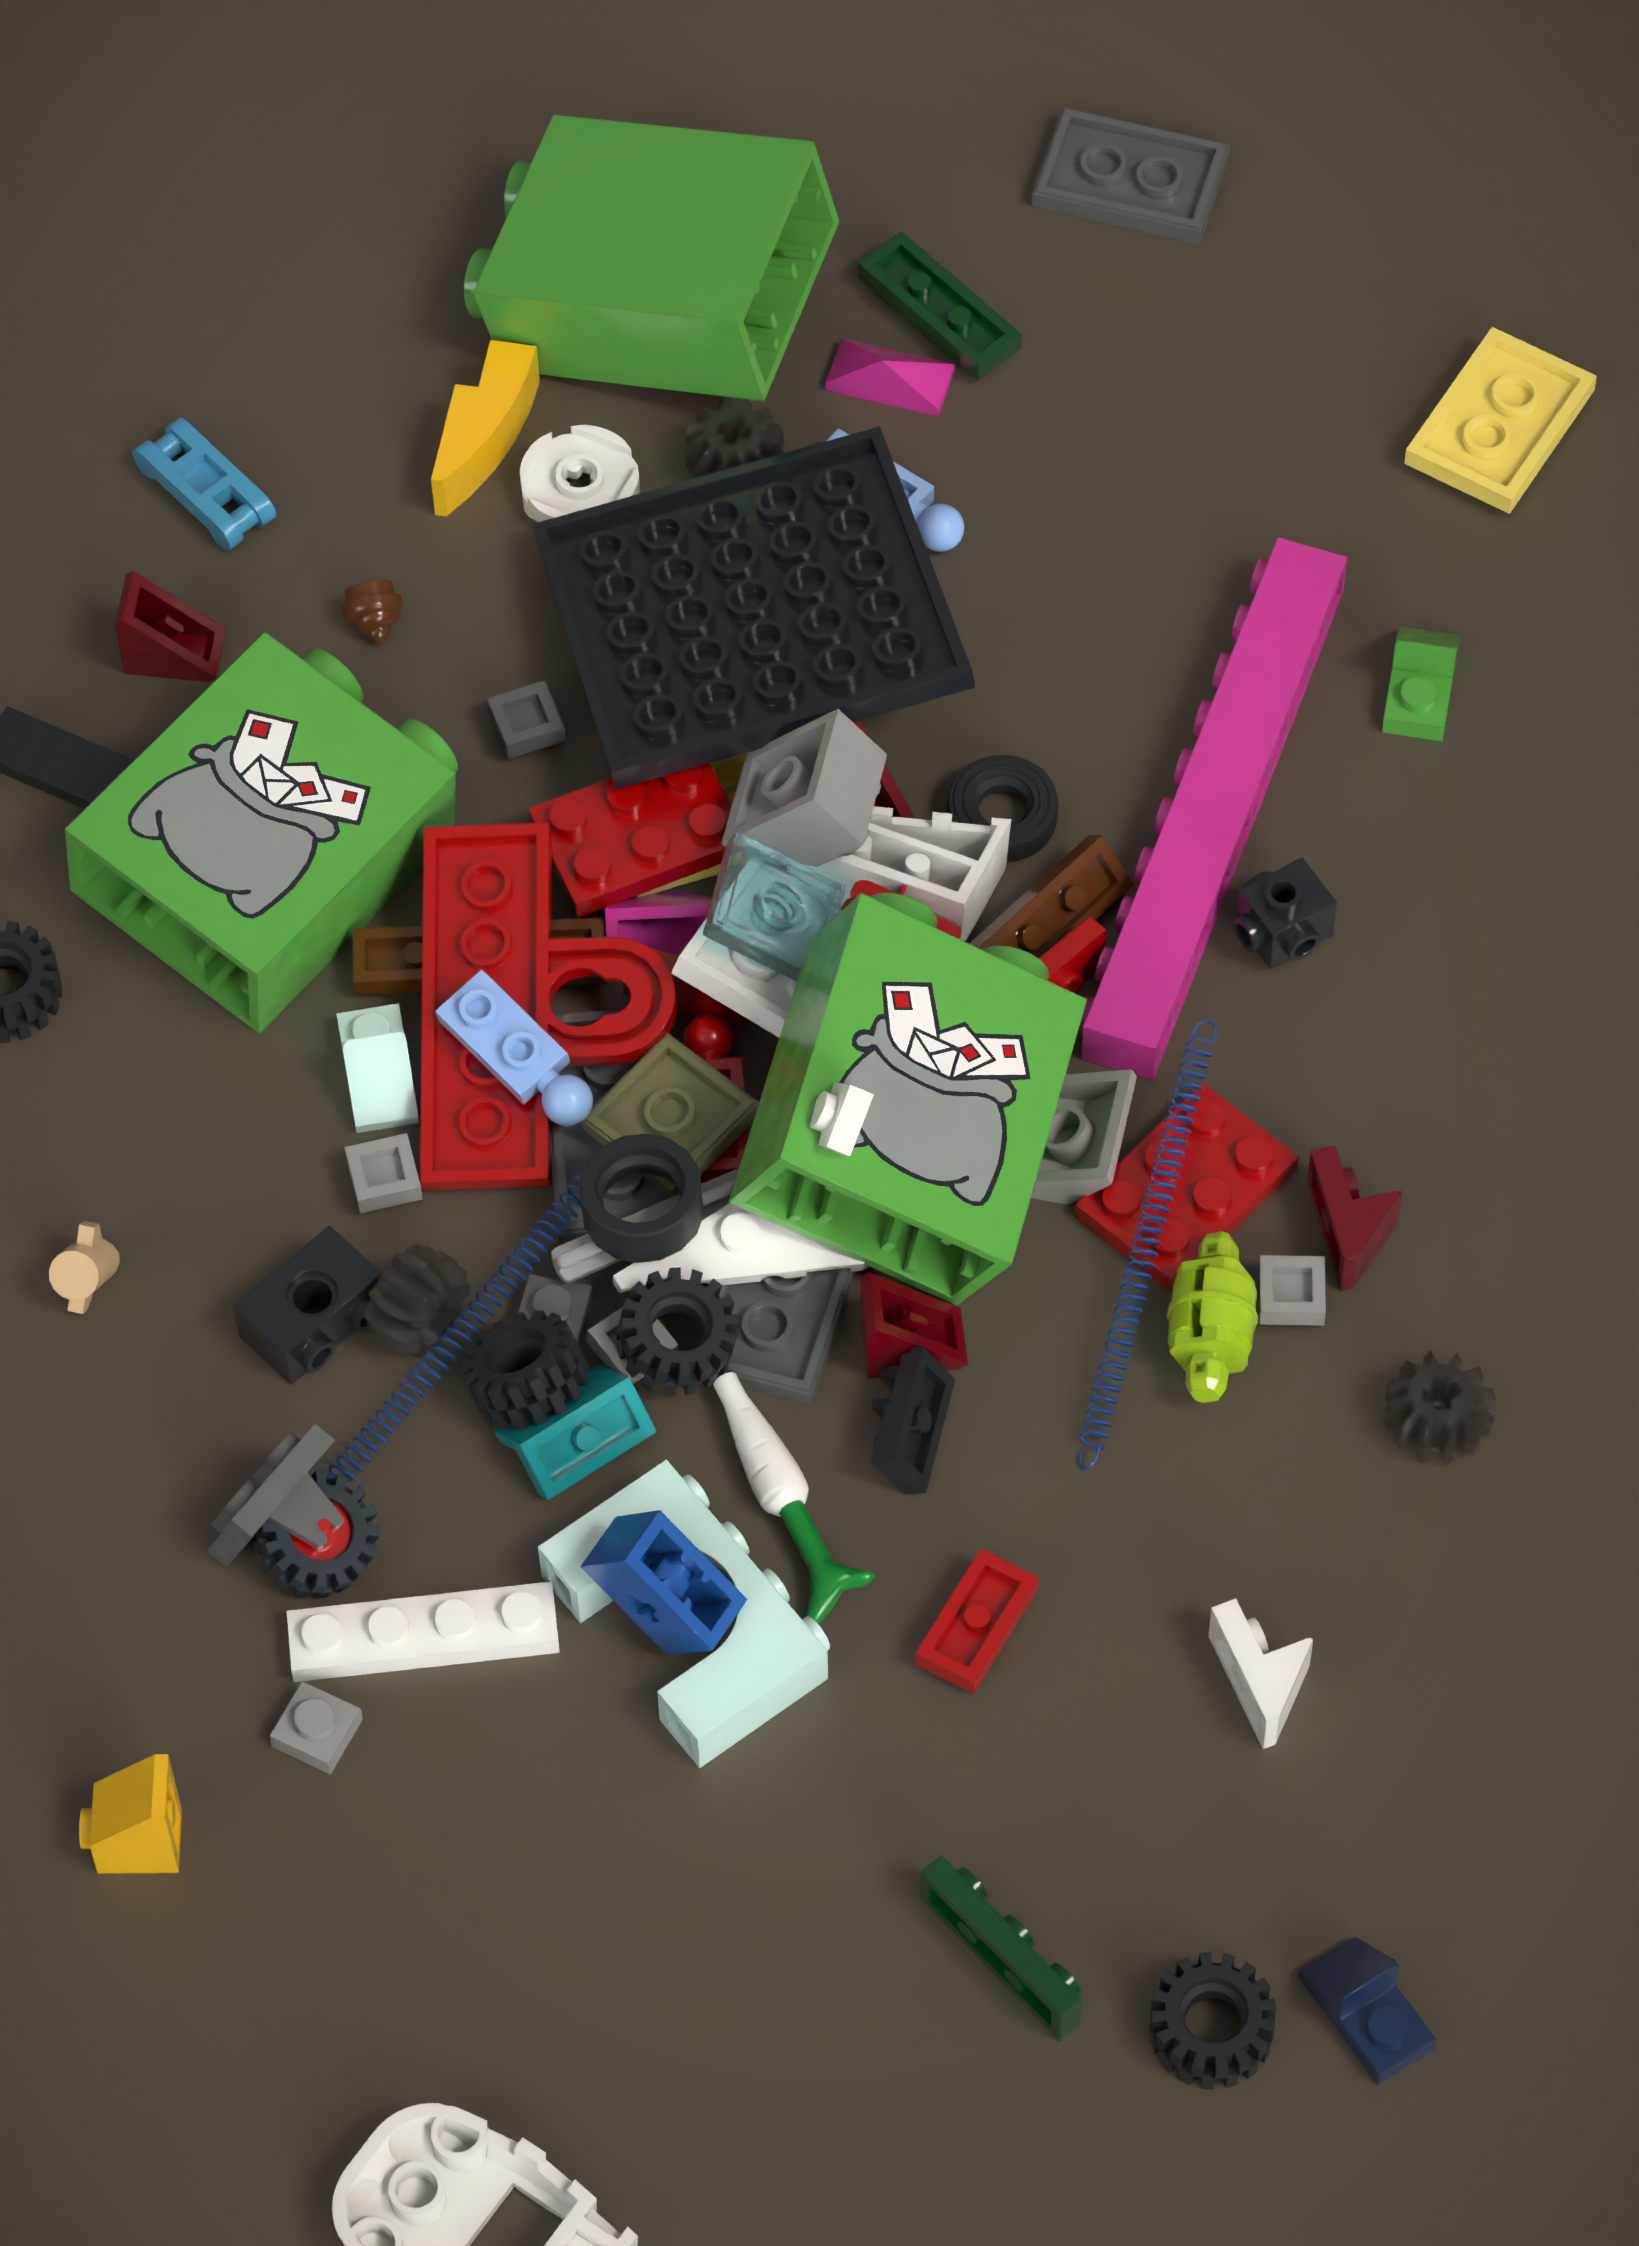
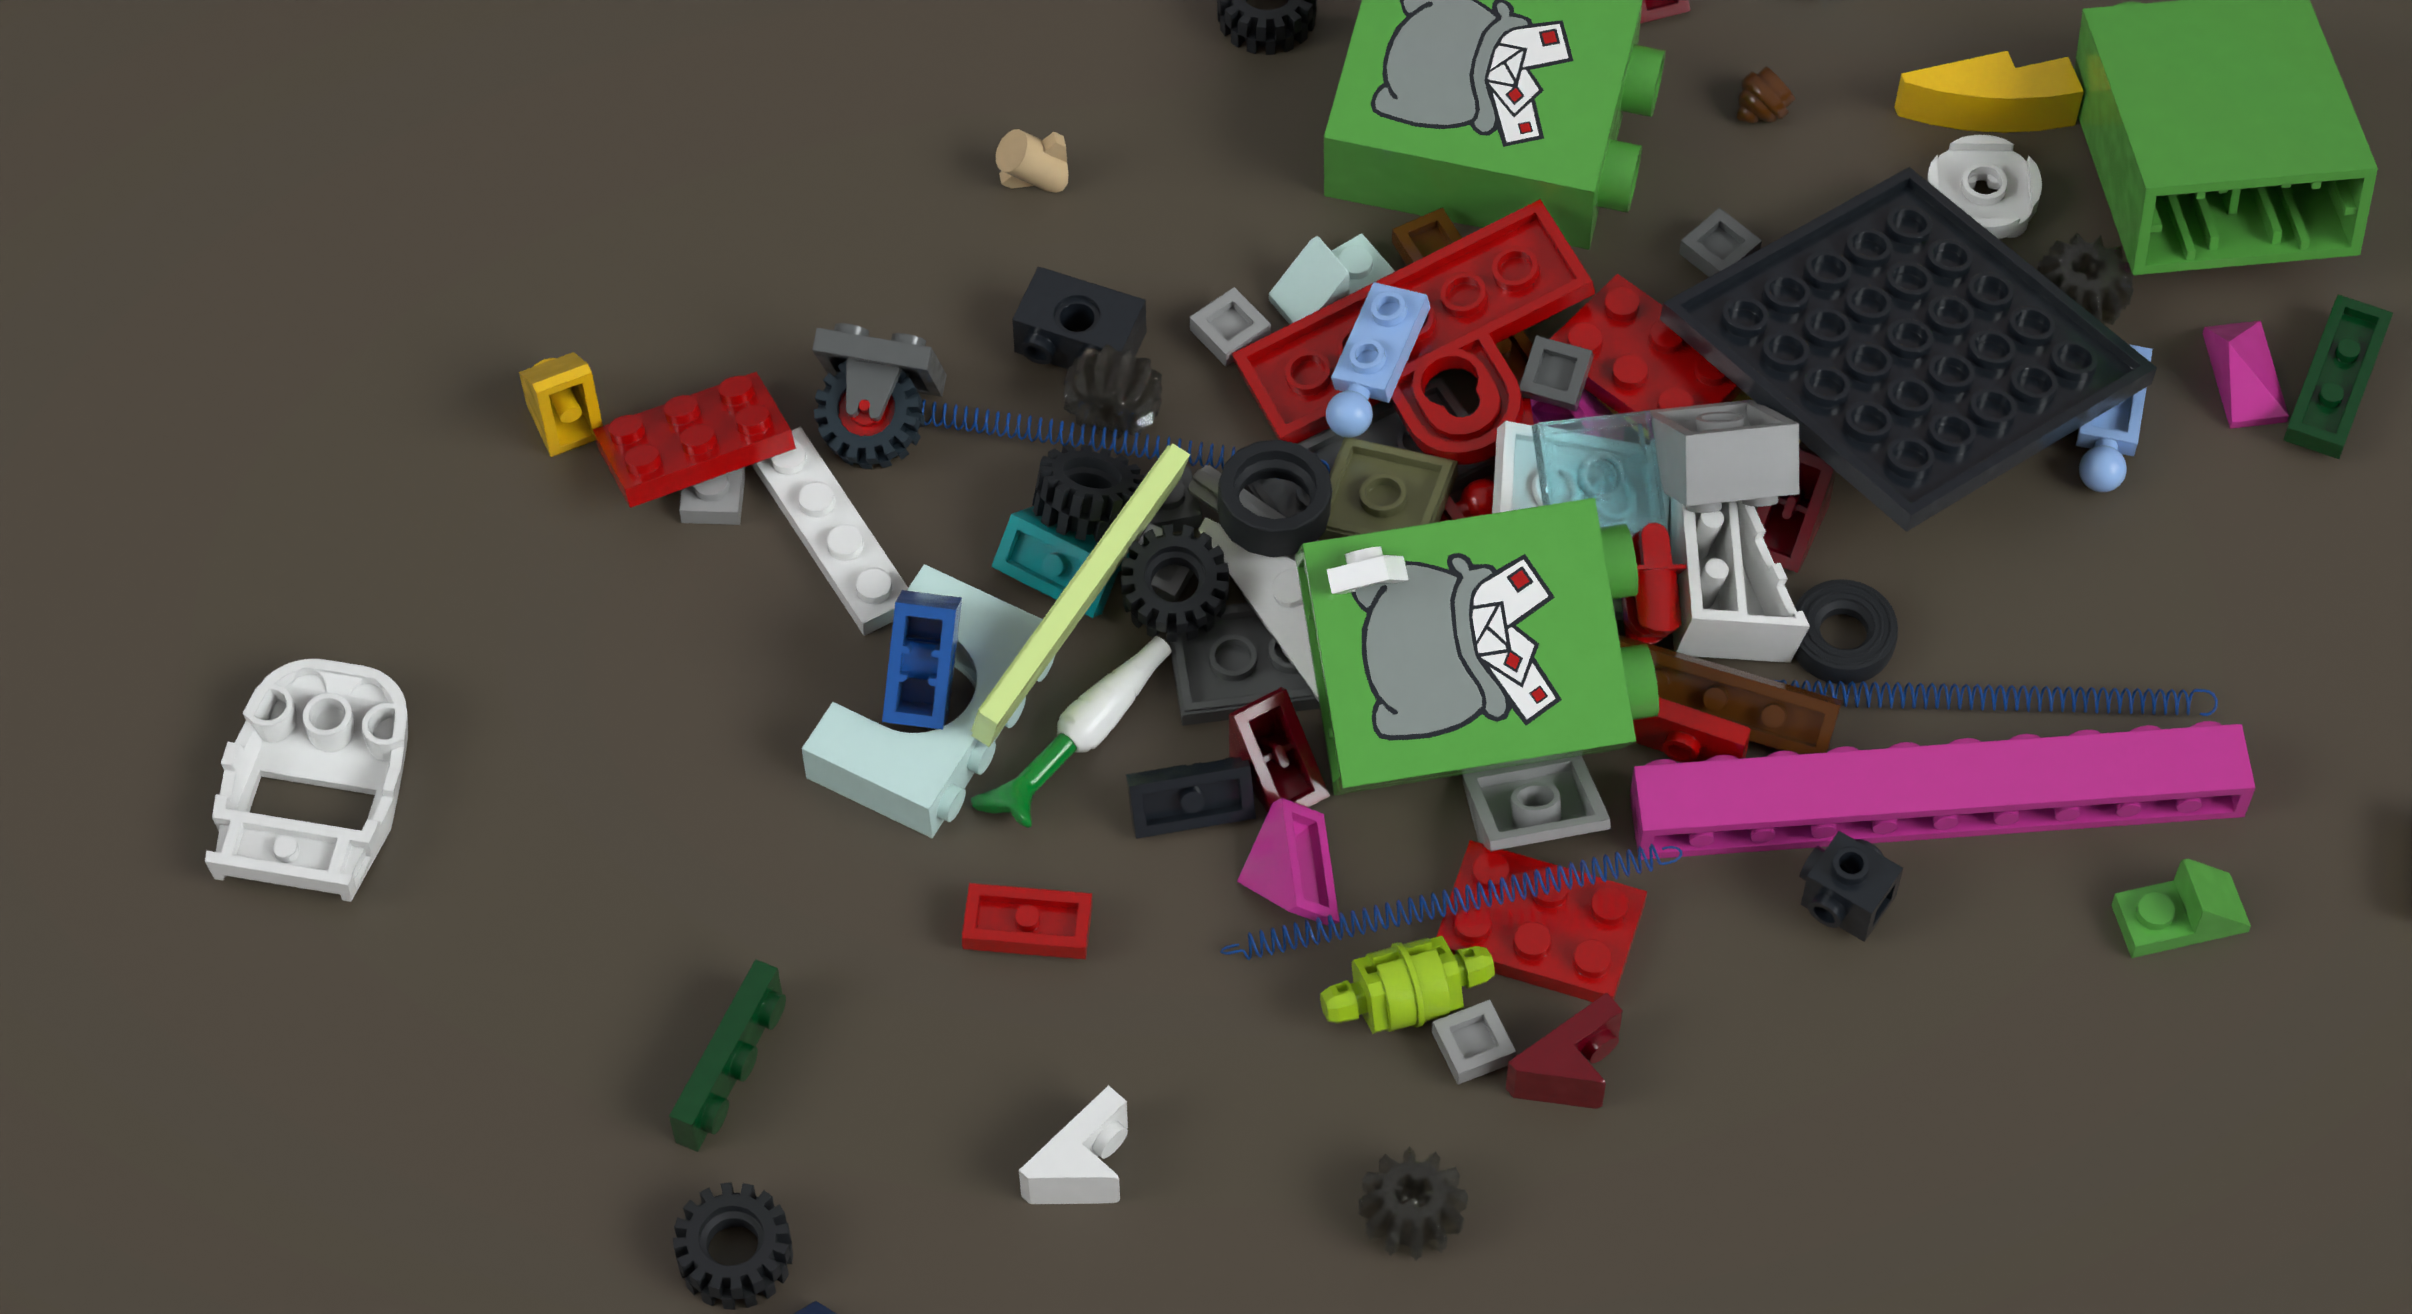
camera: 65 degrees right, 0 degrees up
(252, 1715) = (693, 438): none -> red plate
(623, 902) = (1556, 373): none -> dark grey plate
(666, 1411) = (1079, 595): none -> yellowish green tile
(1026, 1370) = (1293, 862): none -> dark pink slope
(1144, 701) = (2005, 696): none -> blue piece

